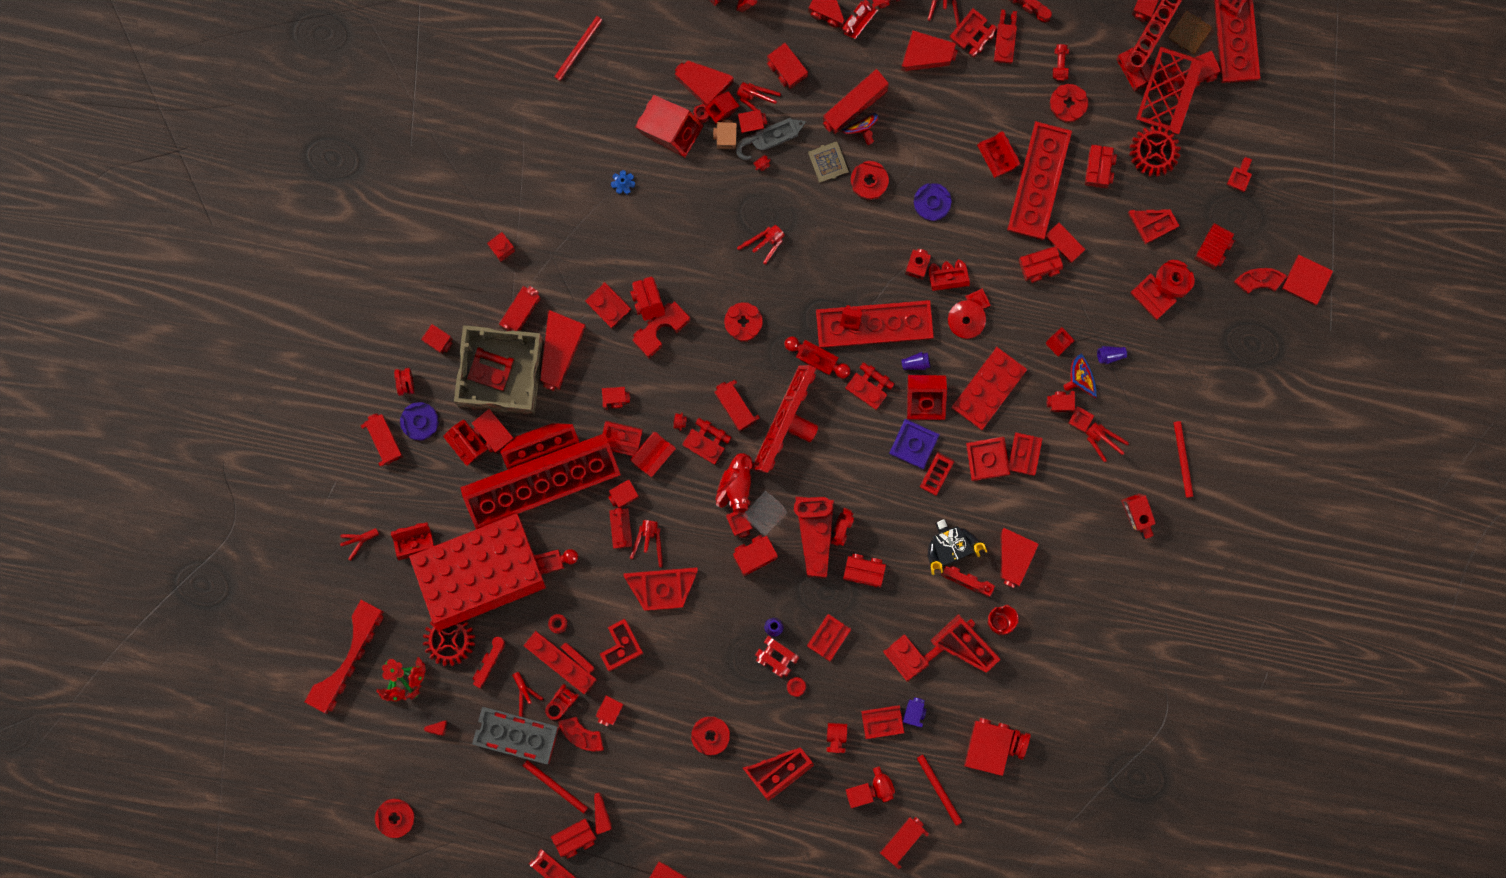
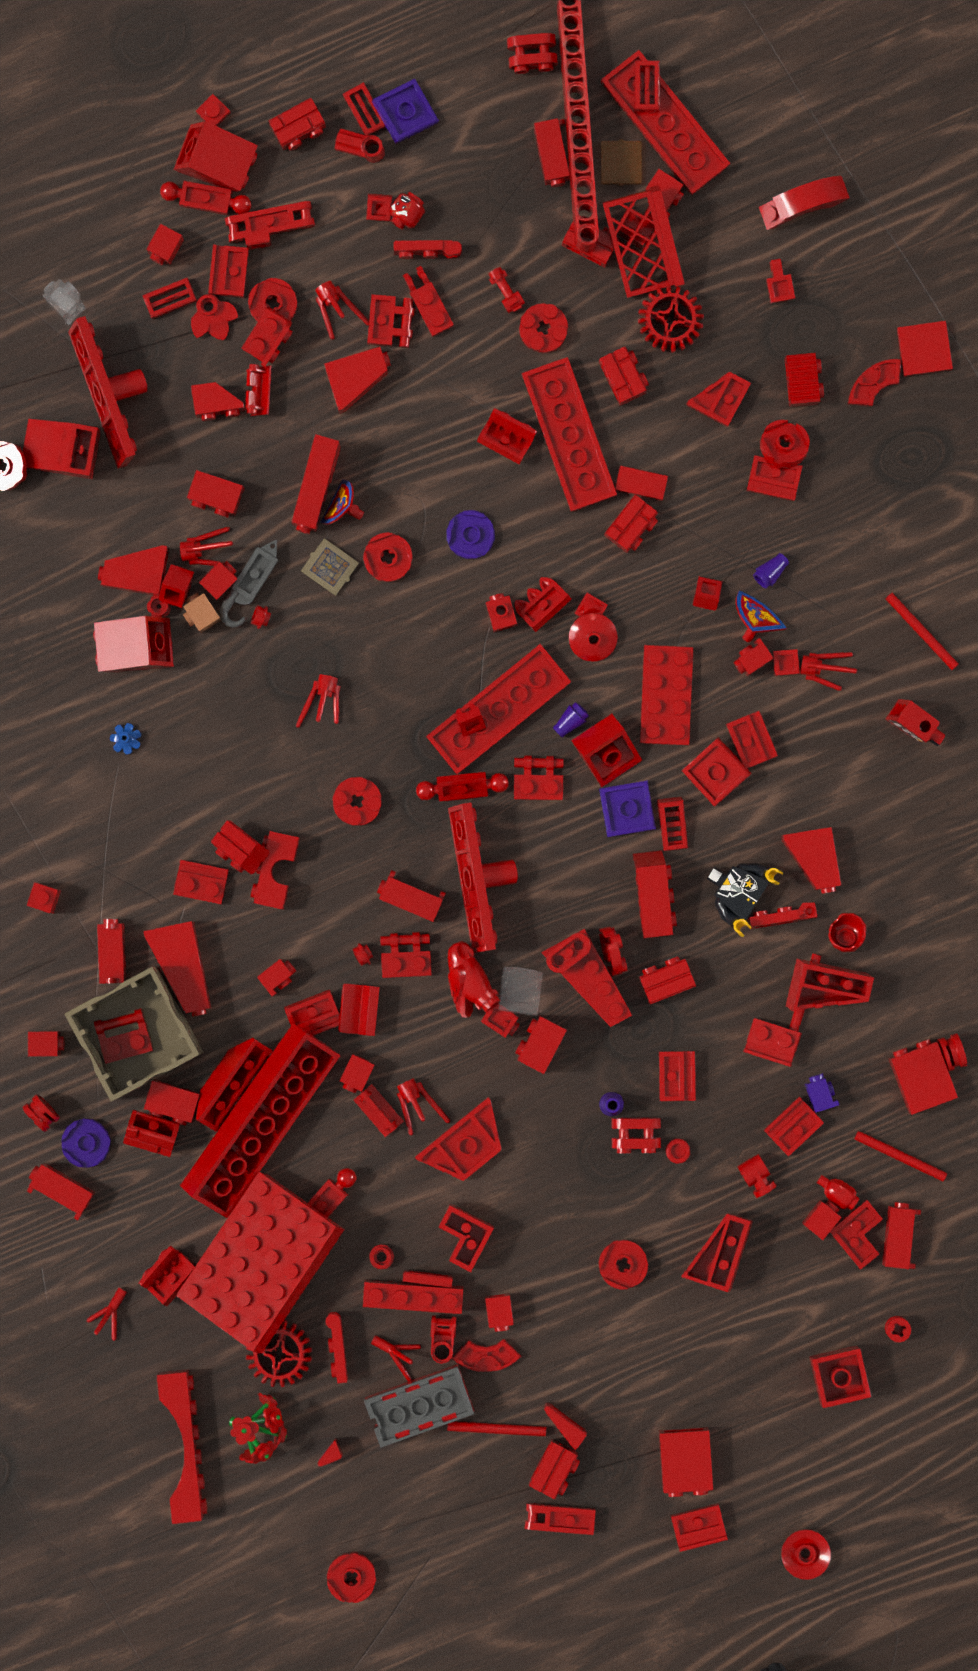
camera: 35 degrees left, 5 degrees up
(871, 819) = (851, 1231): none -> red plate
(894, 510) = (654, 894): none -> red wedge
(1292, 131) = (804, 199): none -> red arch

